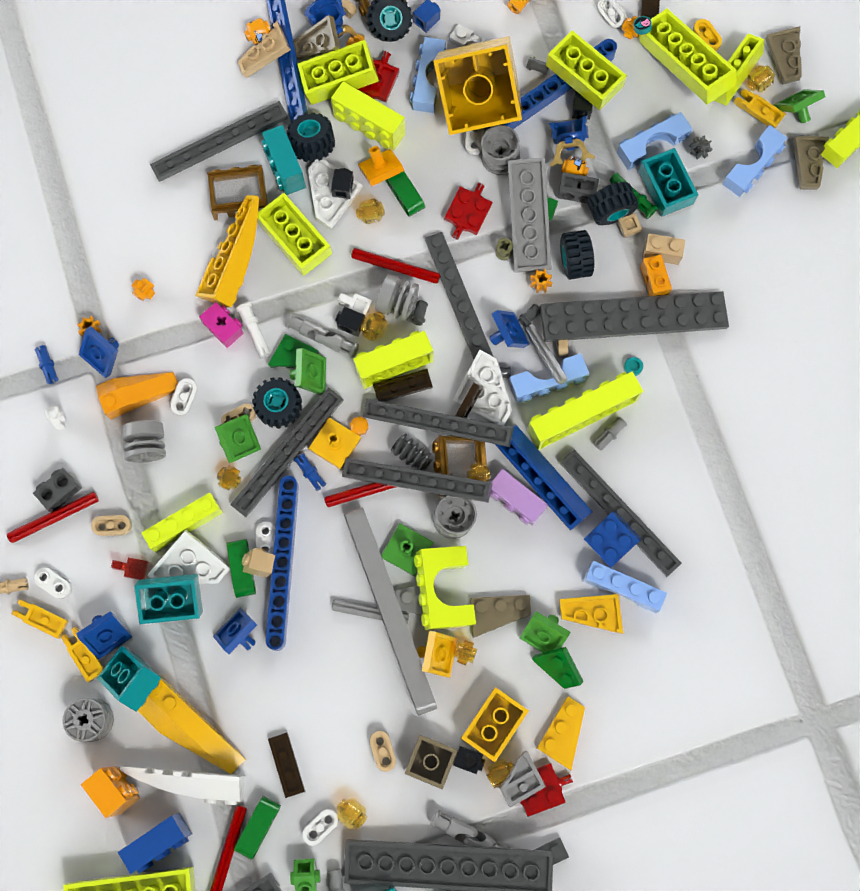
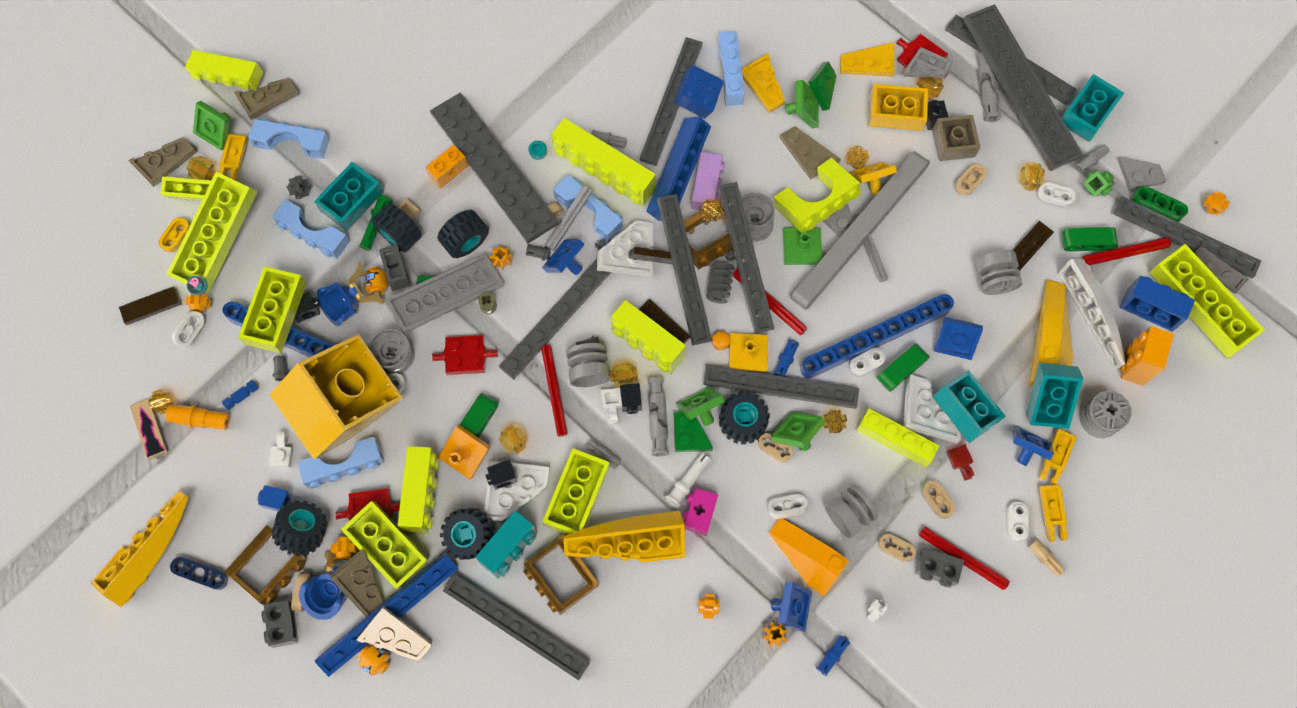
camera: 120 degrees left, 5 degrees down
(93, 463) = (898, 543): none -> tan beam
(258, 562) = (892, 348): tan brick -> none
(271, 709) = (999, 272): none -> light grey wheel
(317, 276) = (603, 453): none -> light grey axle
(532, 28) = (240, 395): none -> blue axle
(669, 247) = (416, 172): tan brick -> none

